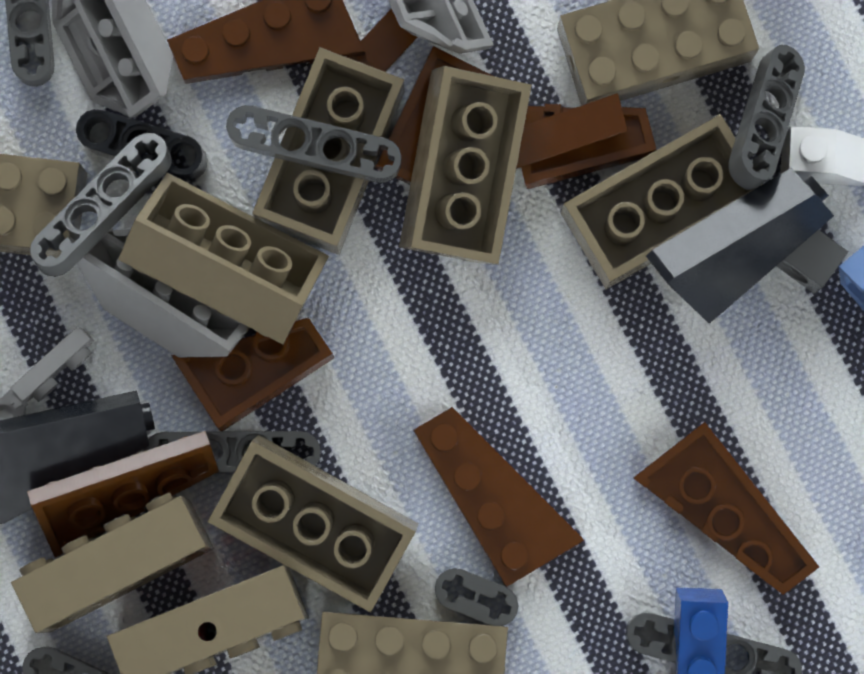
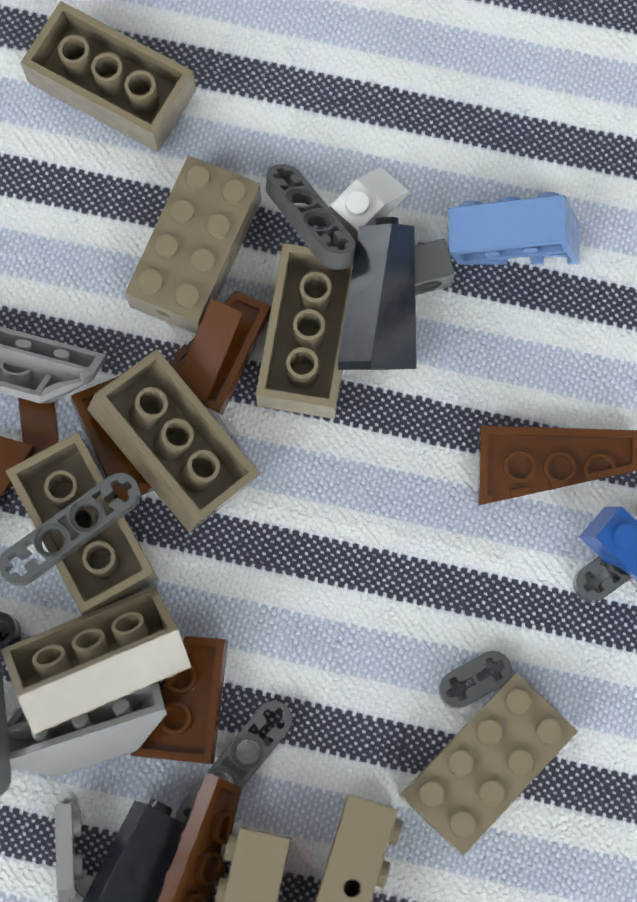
camera: 50 degrees left, 5 degrees down
(313, 523) = (334, 749): dark tan brick -> none
(499, 505) = (422, 611): reddish brown wing -> none

